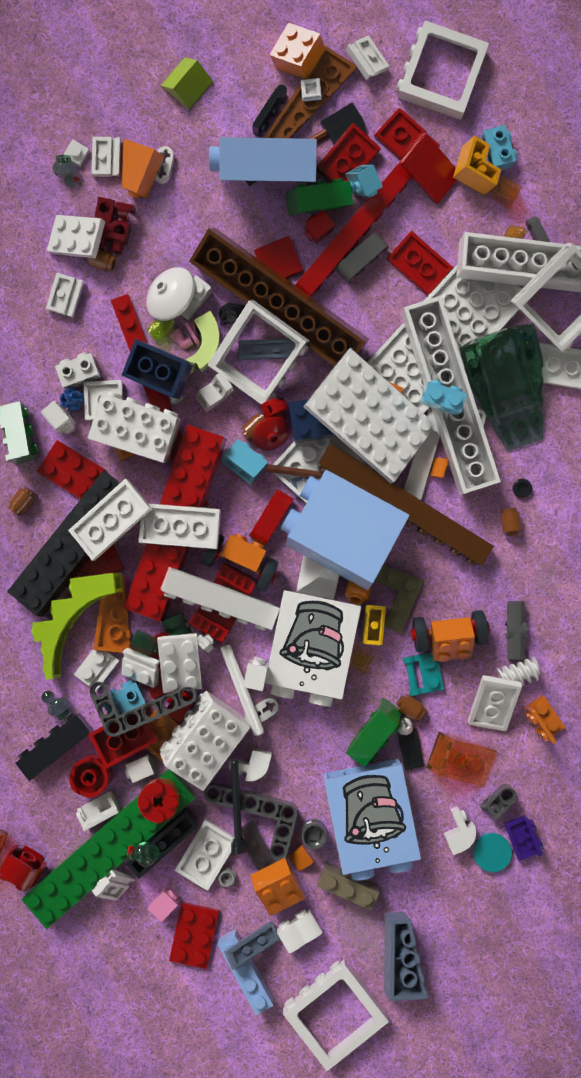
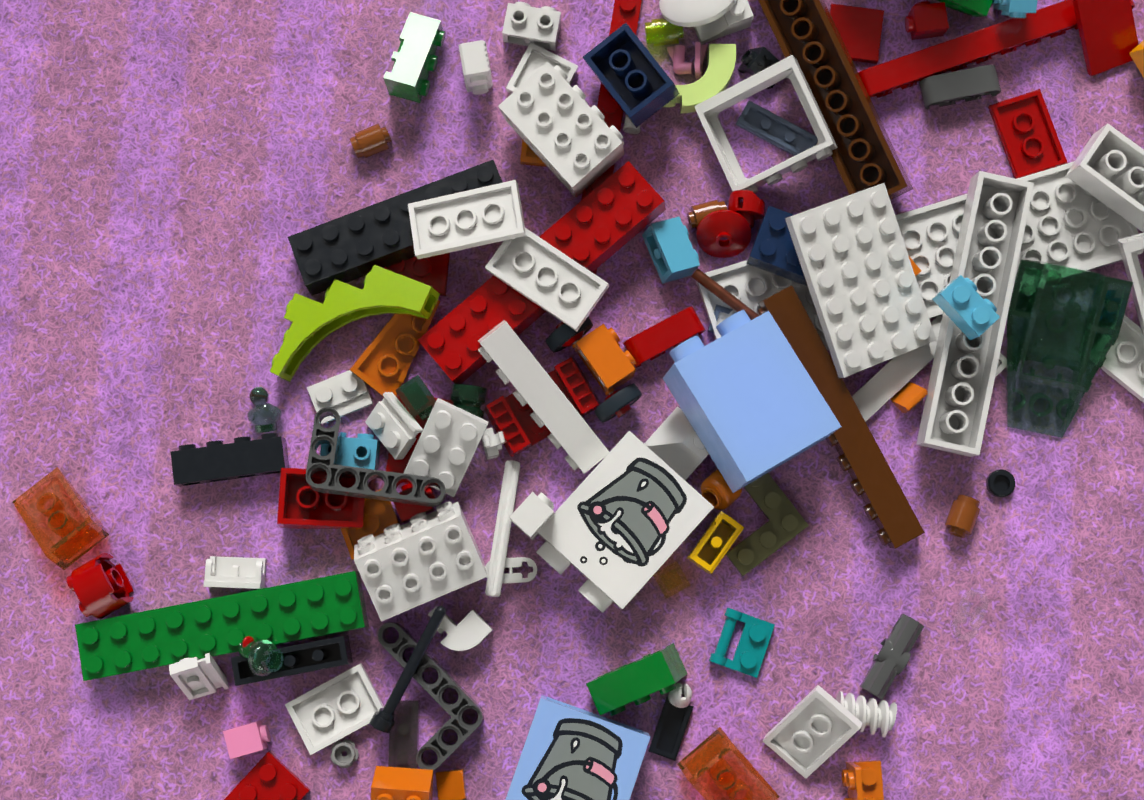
camera: 30 degrees right, 5 degrees down
(69, 469) = (450, 136): red plate -> none
(72, 399) = (504, 55): blue gear -> none
(86, 785) = (237, 528): red brick -> none
(139, 768) = (318, 550): white brick -> none
(163, 810) = (305, 592): red brick -> none
(214, 392) = (683, 145): white brick -> none
(314, 834) = (486, 762): dark grey wheel -> none
(410, 707) = (701, 676): dark orange brick -> none
(451, 637) = (805, 615): orange brick -> none

